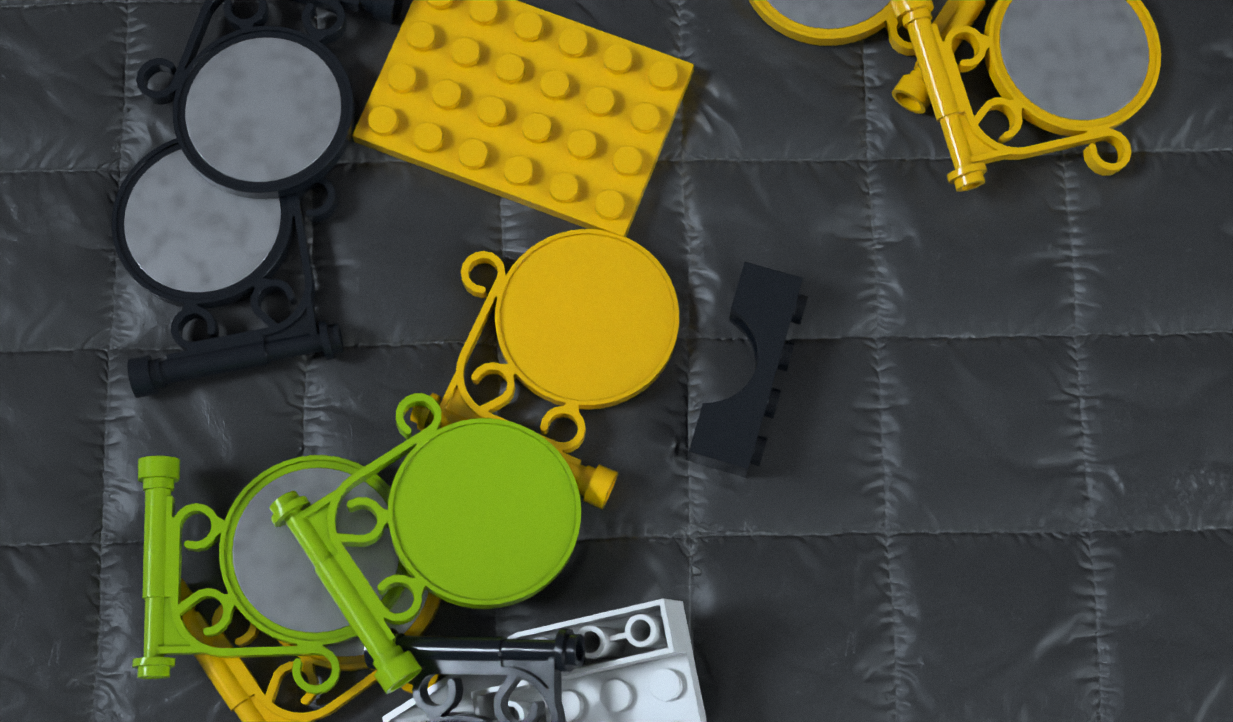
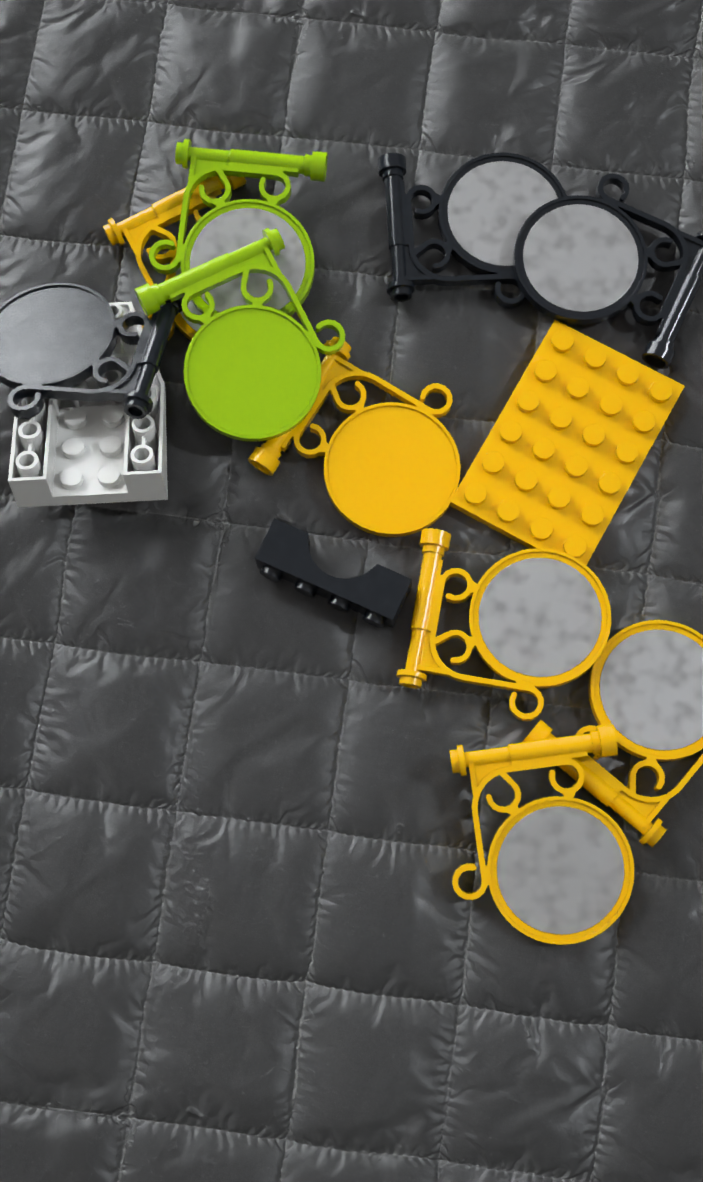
camera: 100 degrees right, 0 degrees up
(765, 116) = (531, 618): none -> piece

